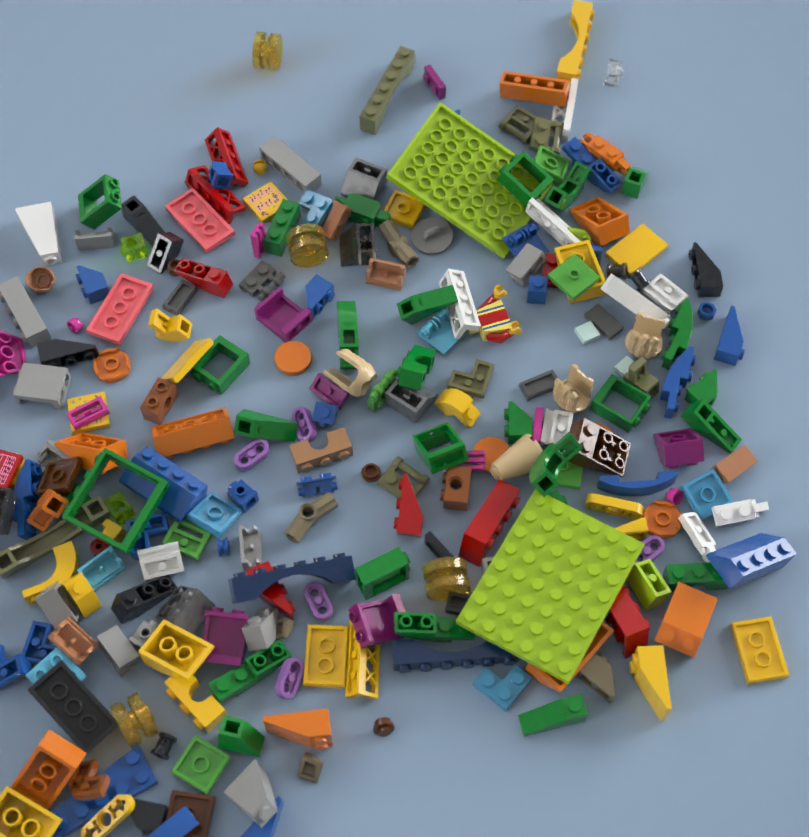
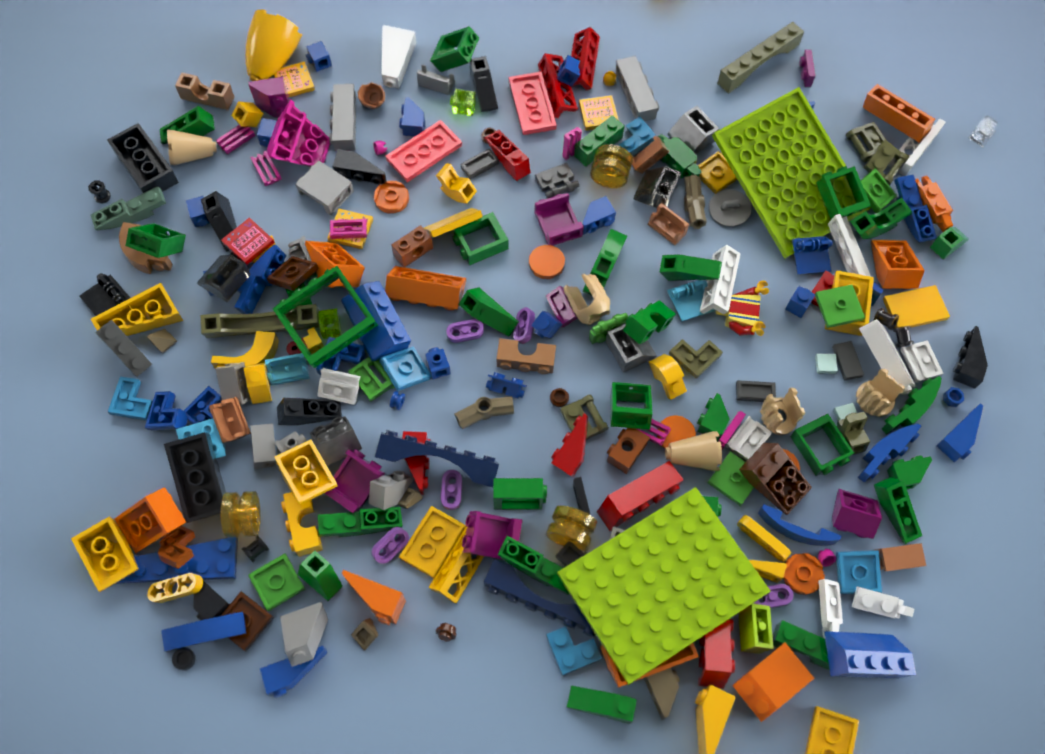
camera: 25 degrees right, 5 degrees up
(49, 506) = (267, 296): orange brick -> none
(164, 250) = (488, 115): black slope -> none
(250, 547) = (419, 412): light grey hinge -> none
(526, 264) = (802, 273): light grey hinge -> none
(548, 464) = (716, 472): green arch -> none
(580, 21) = (977, 70): yellow arch -> none
(581, 234) = (868, 268): lime arm -> none

